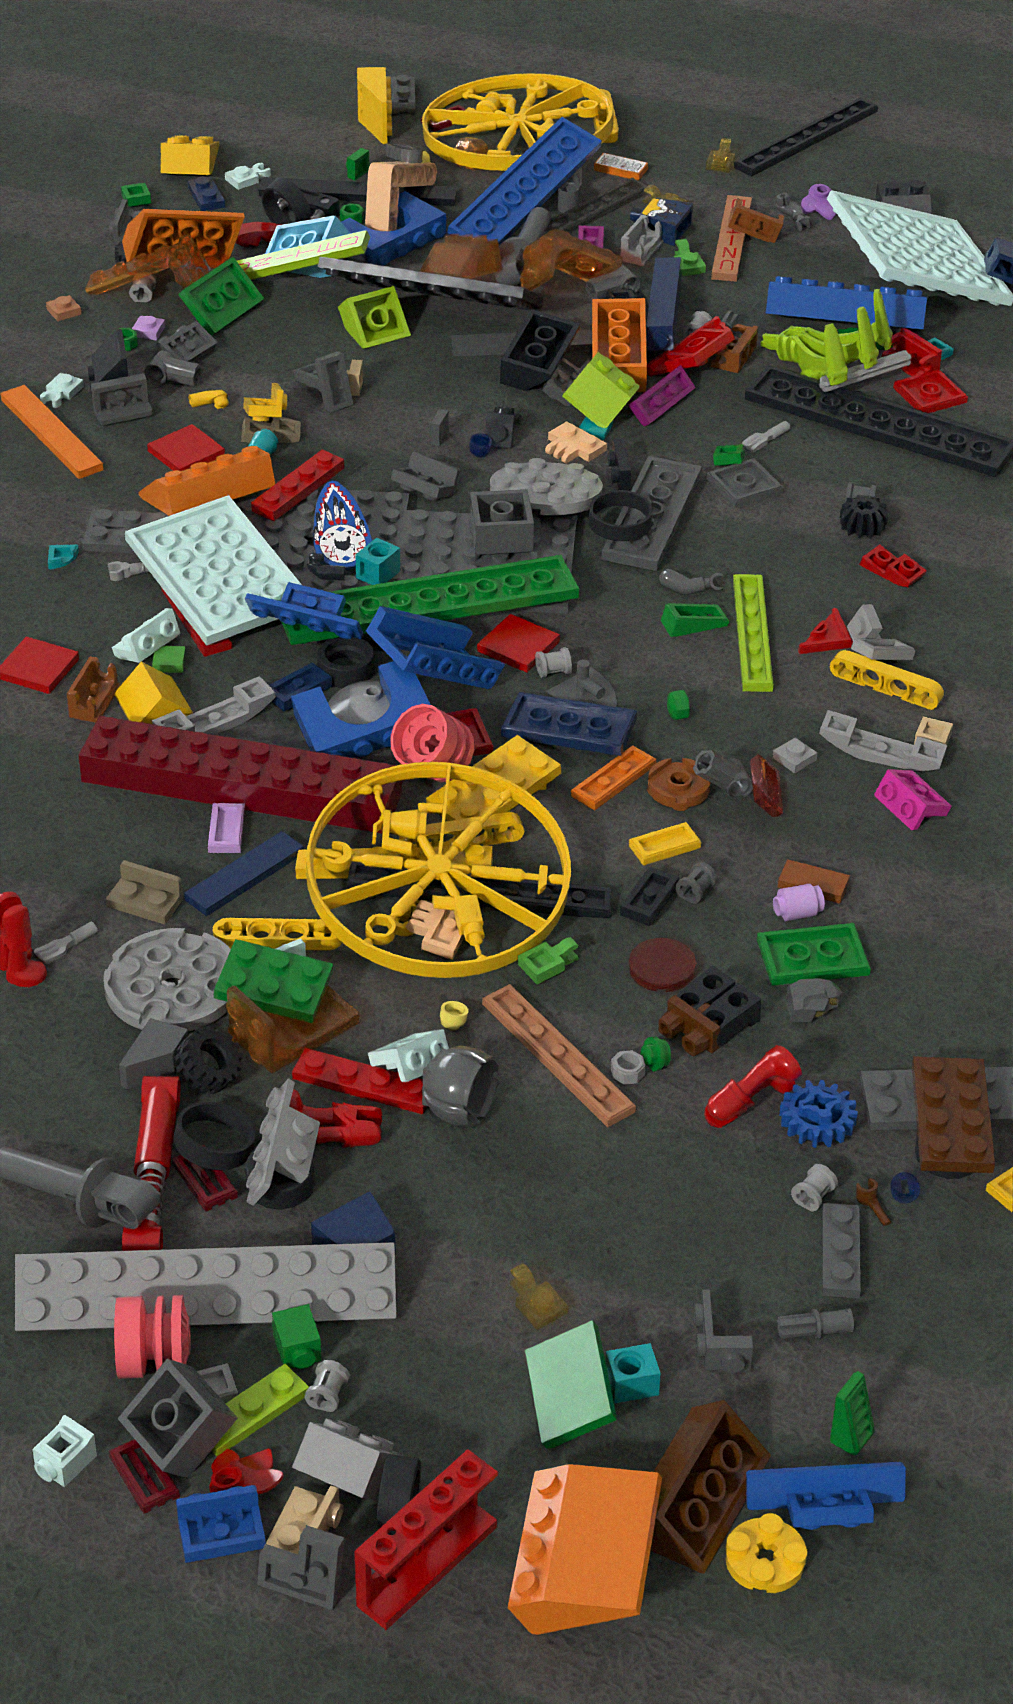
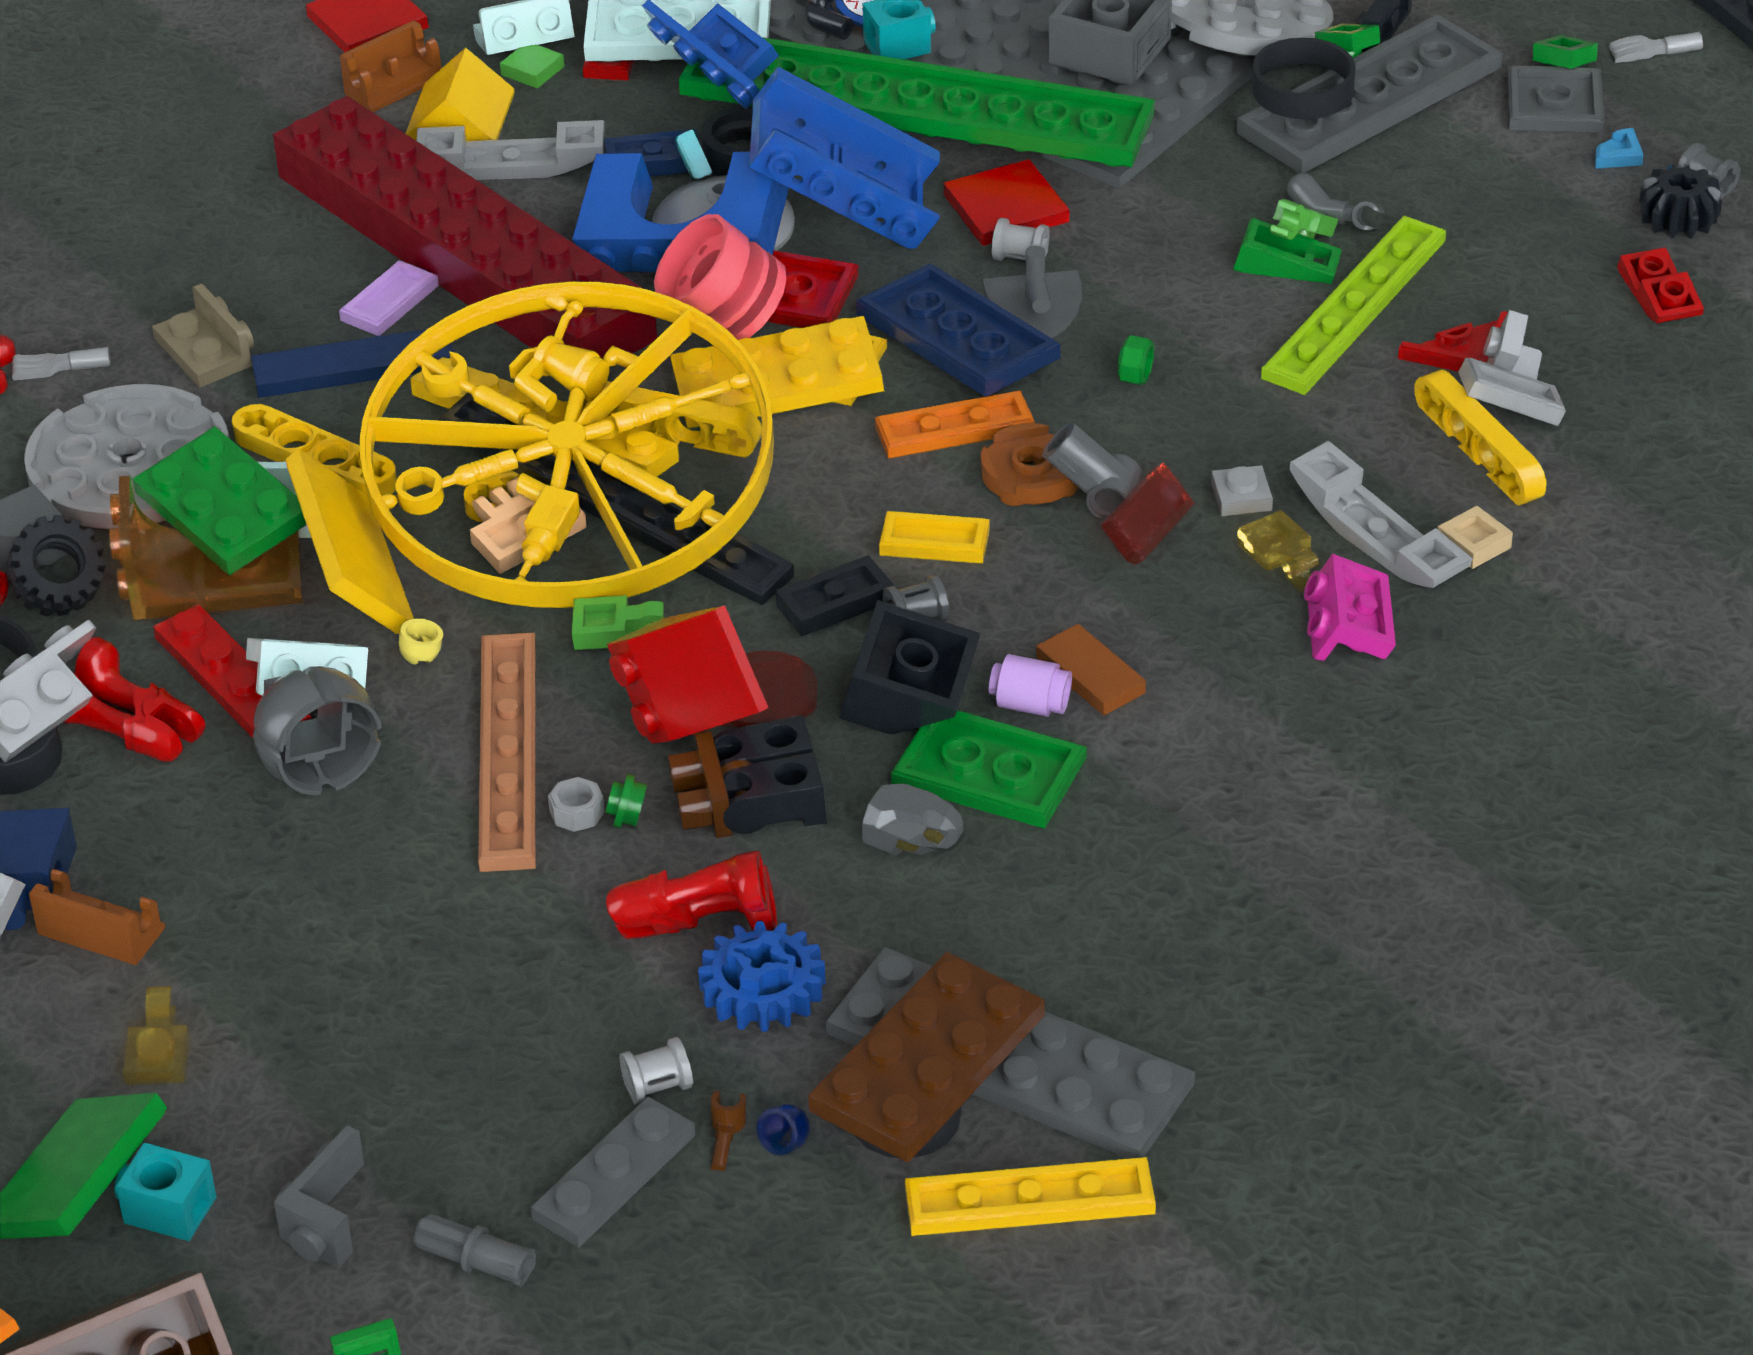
camera: 35 degrees right, 0 degrees up
(333, 677) = (692, 155): none -> tile
(367, 975) = (349, 542): none -> yellow tile
(436, 1250) = (94, 922): none -> dark orange hinge
(619, 482) = (1351, 36): none -> green plate
(648, 966) = (685, 675): none -> red slope
(689, 596) = (1300, 220): none -> bright green plate
(736, 920) = (908, 671): none -> black slope
(803, 500) = (1620, 150): none -> dark azure tile
(848, 775) = (1279, 542): none -> clear yellow plate

